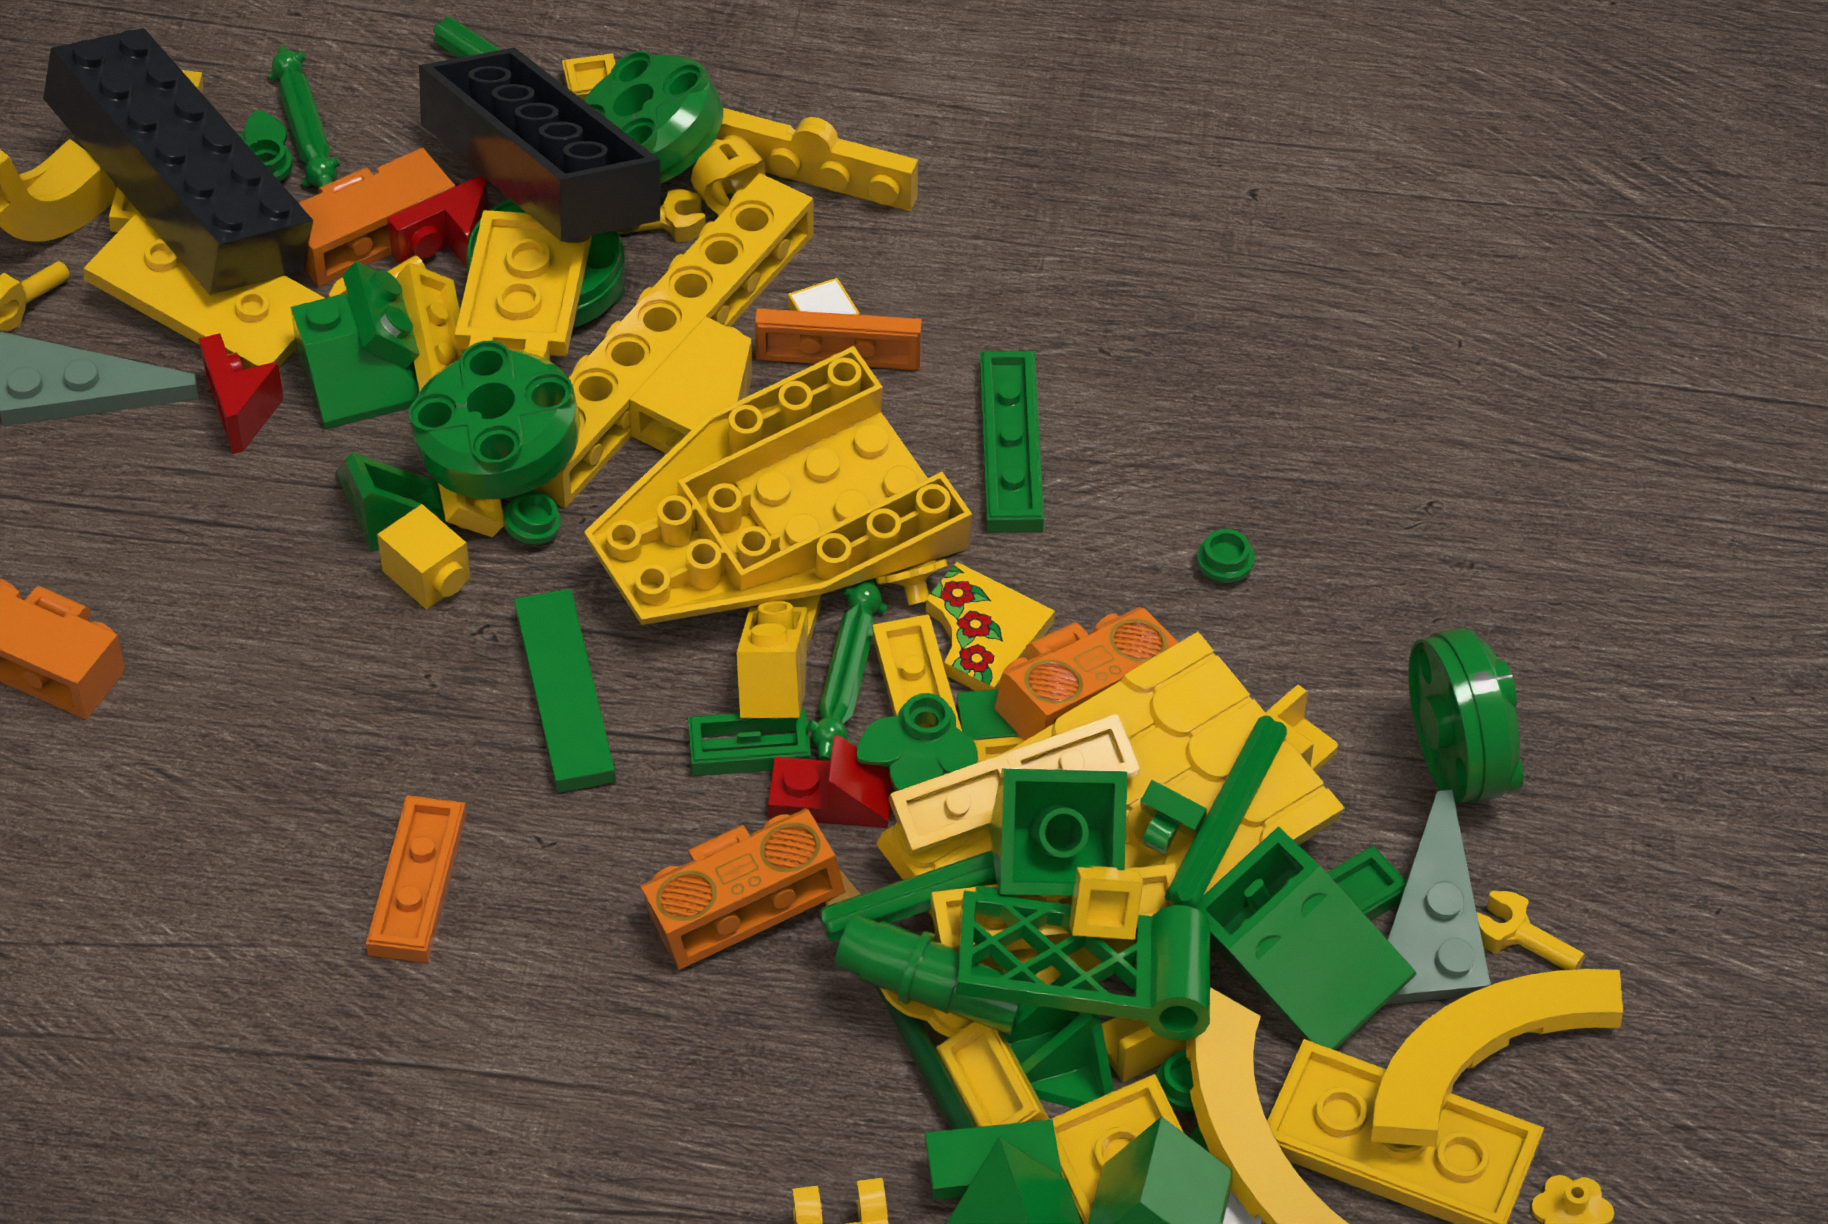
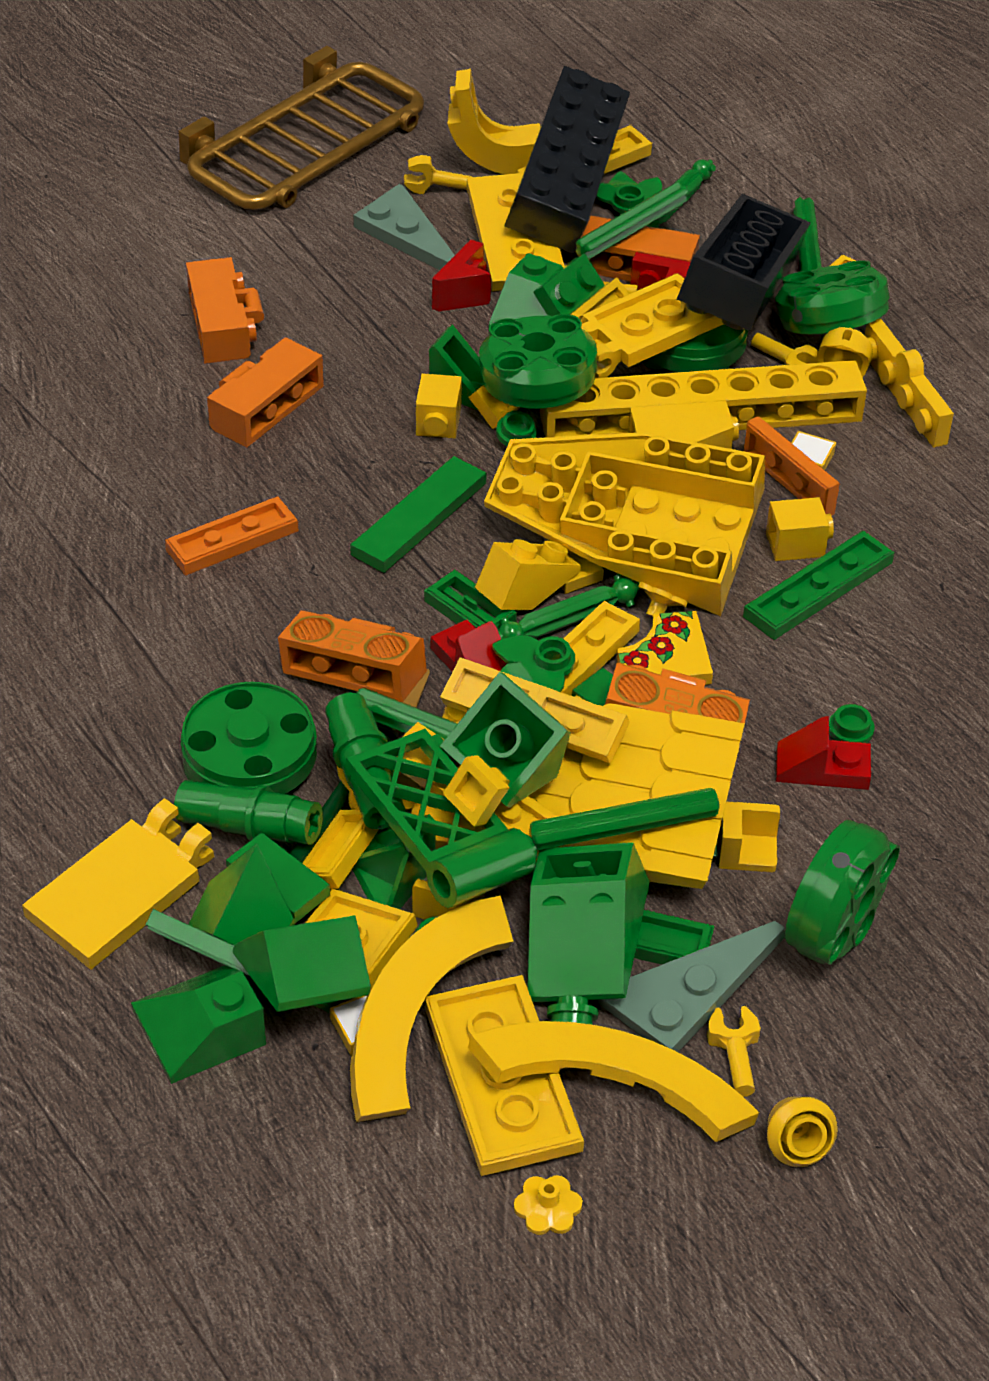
camera: 50 degrees right, 5 degrees down
(230, 721) = (266, 392): none -> orange piece
(344, 184) = (632, 220): none -> green axle
(773, 1064) = (249, 738): none -> green piece
(880, 1125) = (249, 811): none -> green piece
(931, 399) = (798, 529): none -> yellow brick
(1170, 814) = (591, 792): green tile -> none
(1245, 609) = (815, 760): none -> red slope
(1385, 1033) = (572, 1009): none -> green plate
(1671, 951) = (801, 1131): none -> yellow cone

